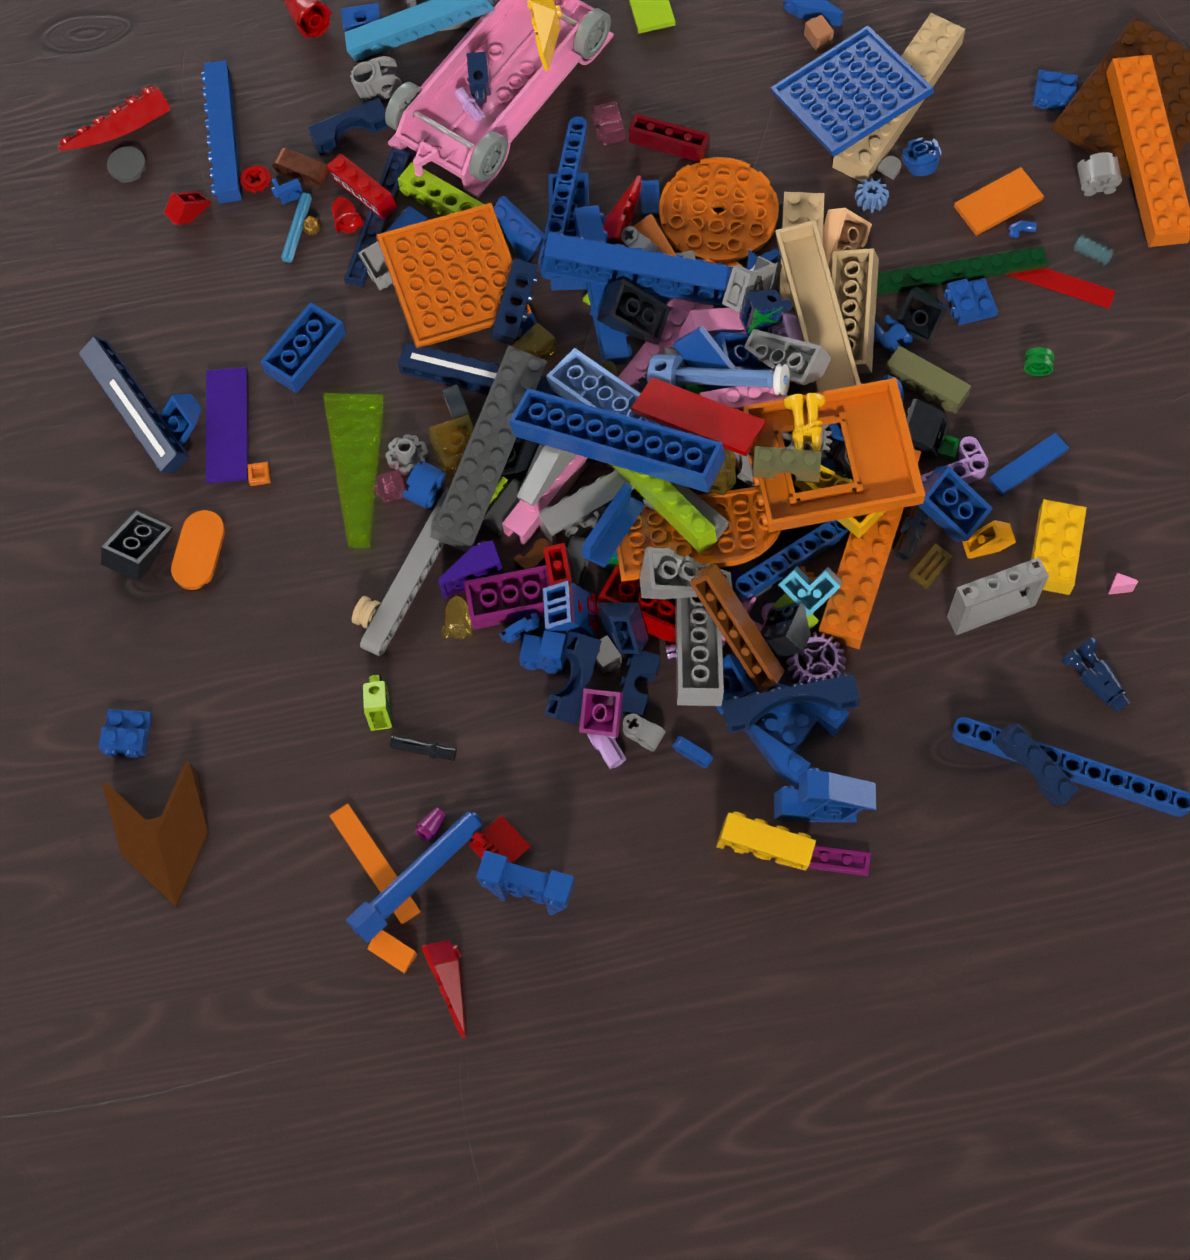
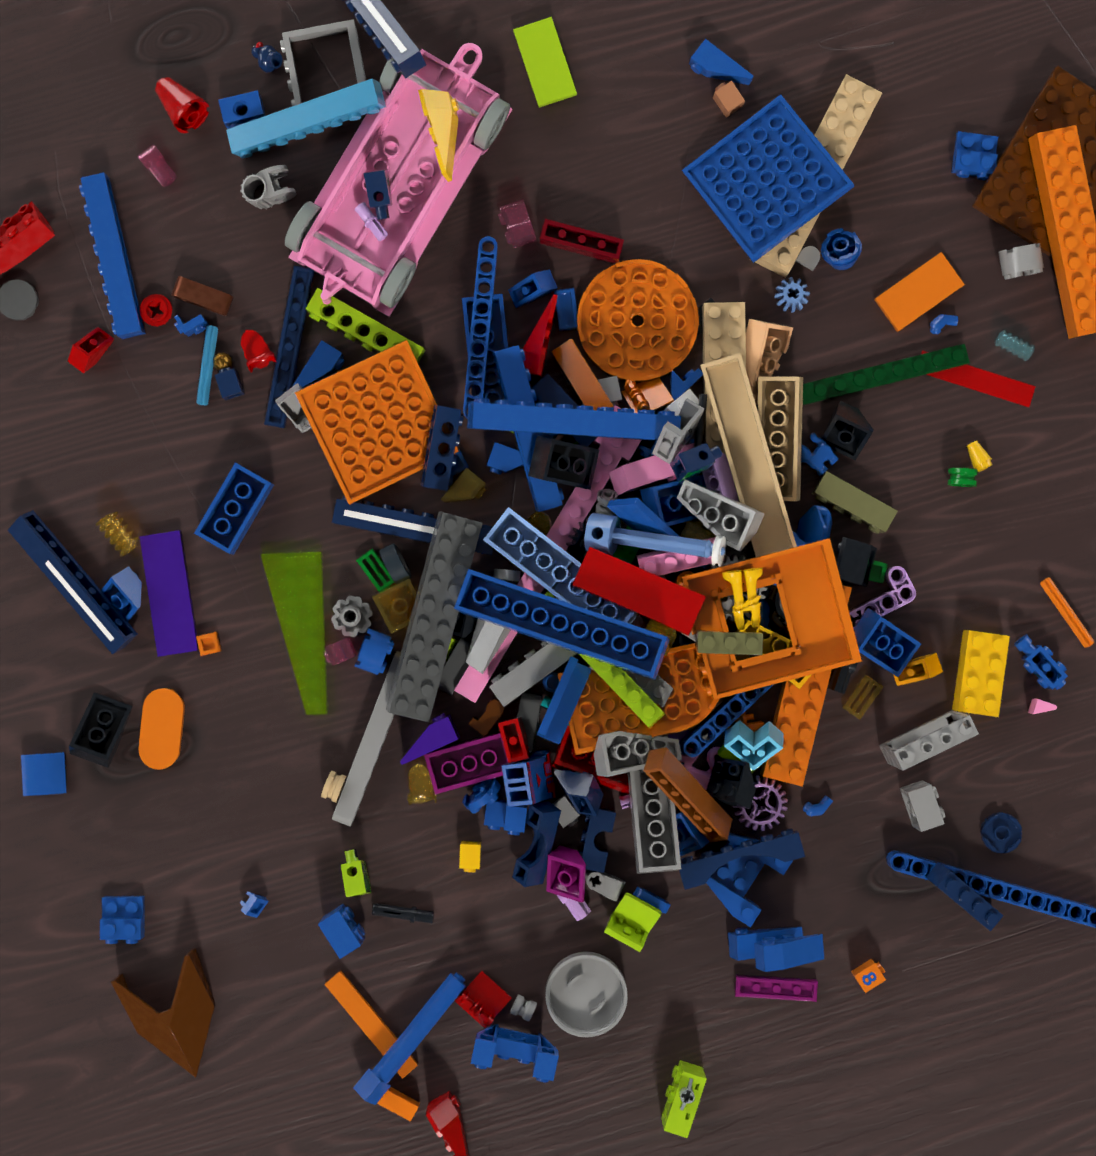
camera: 10 degrees left, 20 degrees up
(70, 583) = (43, 774): none -> blue slope
(186, 365) = (118, 533): none -> clear yellow piece
(266, 727) = (254, 905): none -> blue tile
(274, 57) = (154, 162): none -> clear pink piece
(315, 242) = (229, 383): none -> dark blue brick
(328, 132) = (223, 253): dark blue arch -> none
(356, 754) = (342, 930): none -> blue brick
(362, 186) = (269, 319): red brick -> none
(428, 402) = (368, 573): none -> green tile
(430, 825) = (418, 986): magenta cone -> none
(501, 692) = (470, 856): none -> yellow brick
(519, 230) = (437, 365): blue wing -> none
(542, 855) = (523, 1007): none -> light grey wheel
(576, 321) = (504, 459): none -> blue slope
(612, 845) = (586, 994): none -> light grey piece
(618, 176) = (532, 288): none -> blue slope
(638, 241) = (564, 377): light grey piece -> none
(670, 768) = (632, 921): none -> lime bracket
(711, 961) = (683, 1098): none -> lime piece
(766, 841) = (724, 985): yellow wedge -> none
(878, 673) = (817, 809): none -> blue arm
(928, 848) = (869, 975): none -> orange brick
(970, 301) = (893, 409): blue plate -> none
(991, 669) = (922, 805): none -> light grey brick
(1028, 464) = (953, 584): blue tile -> none
(1058, 346) = (978, 456): none -> yellow cone
(1078, 712) = (1001, 832): none -> dark blue tile
(1100, 678) = (1020, 800): dark blue piece -> none
(1127, 544) = (1043, 665): none -> blue brick
(1149, 497) = (1067, 612): none -> orange axle

